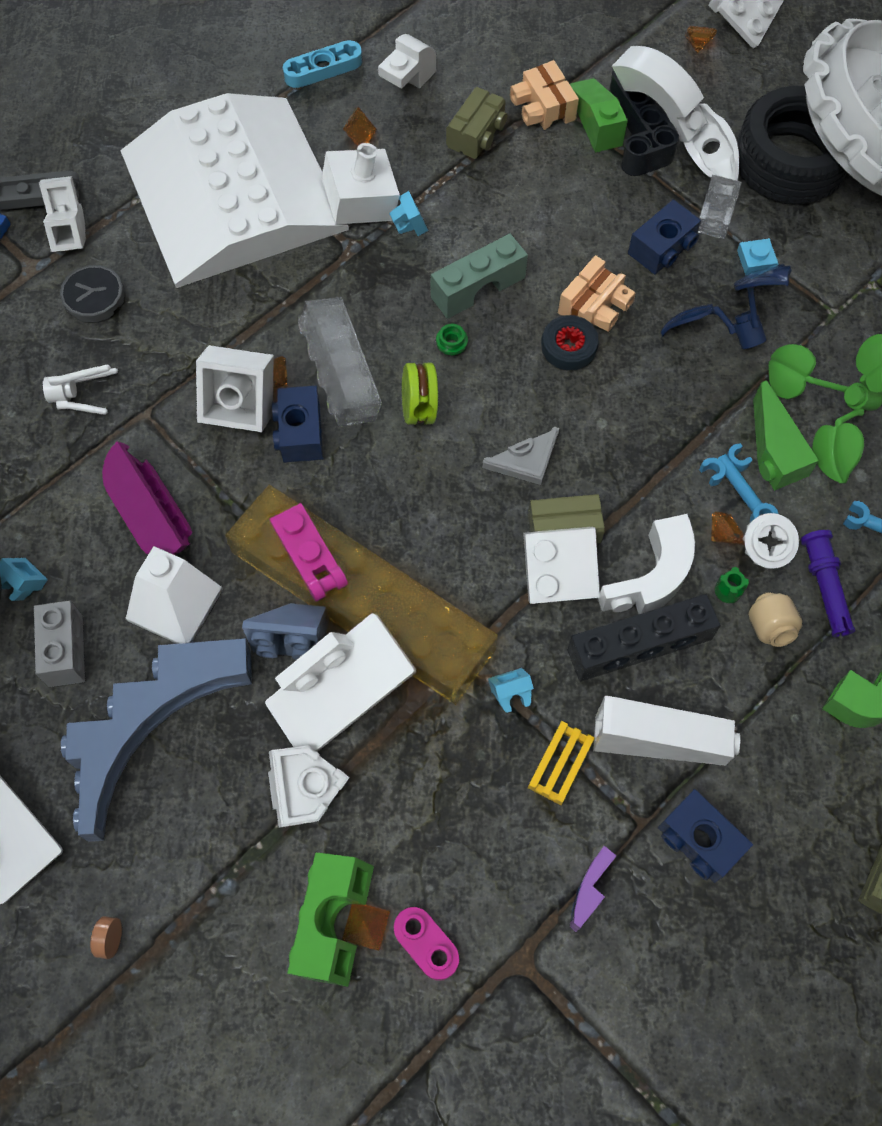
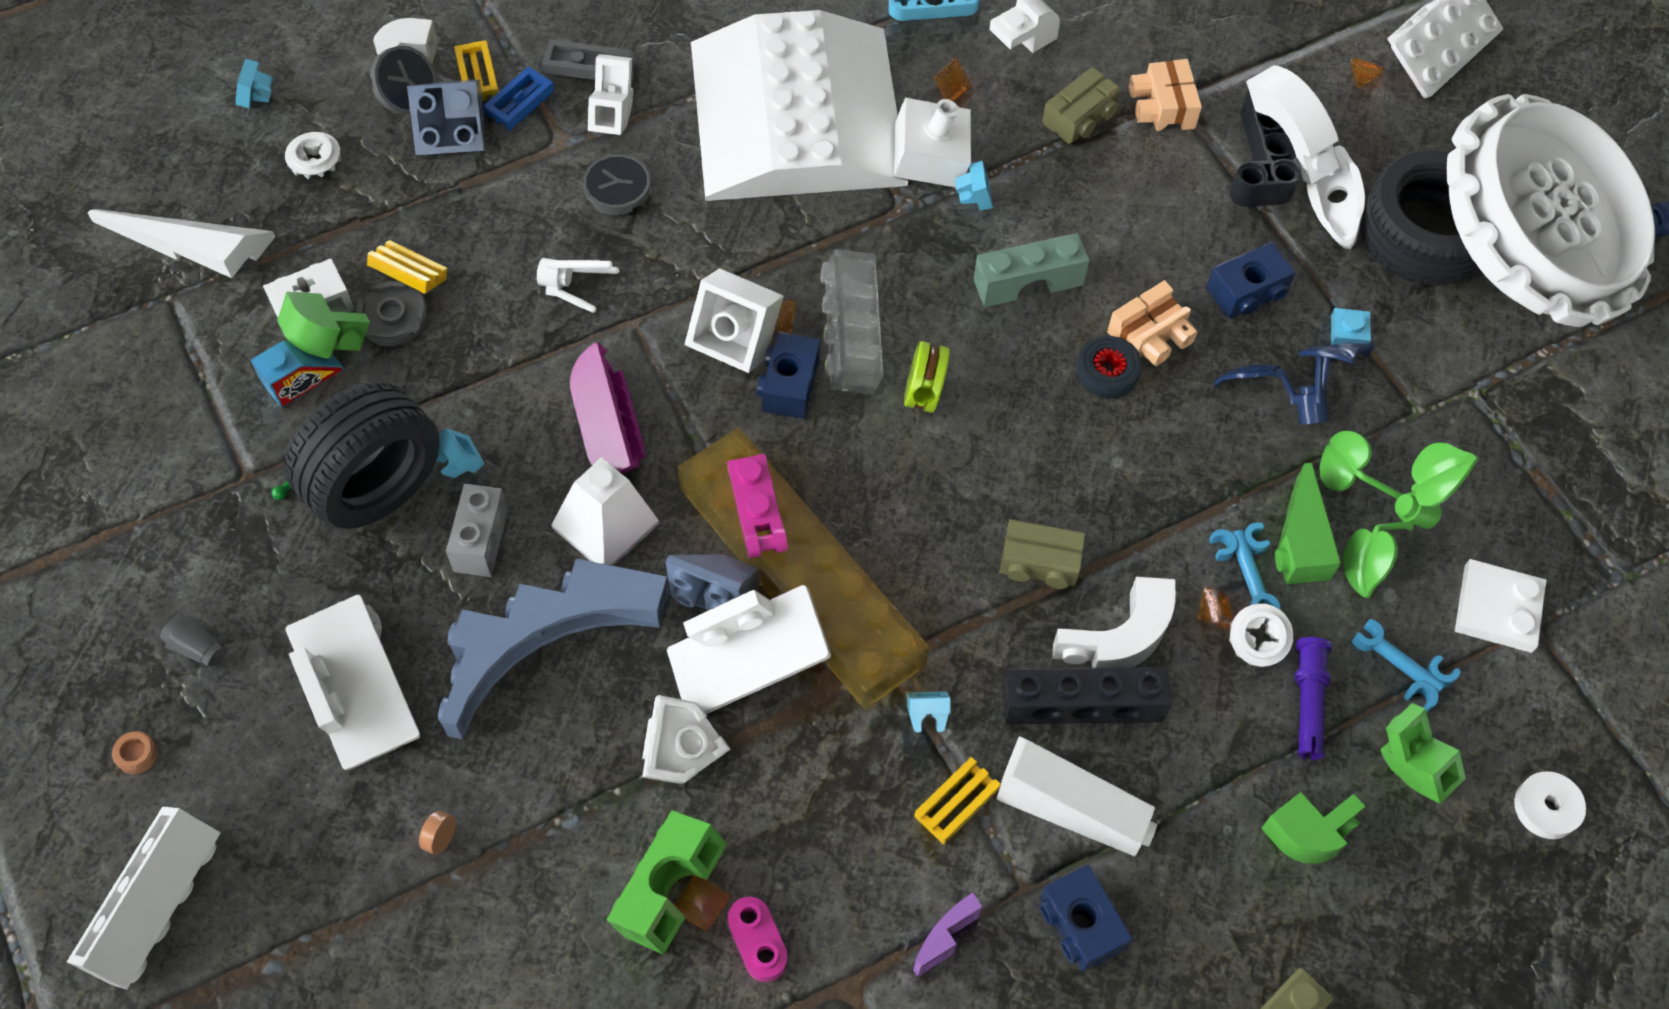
camera: 15 degrees right, 5 degrees down
(451, 332) = (983, 322): green plate -> none
(525, 459) = (1021, 476): light grey tile -> none
(561, 565) = (1022, 596): white plate -> none
(600, 115) = (1221, 129): bright green slope -> none
(719, 206) = (1323, 262): clear slope -> none
(729, 593) = (1198, 678): green hose -> none
(775, 619) = (1238, 718): tan head -> none

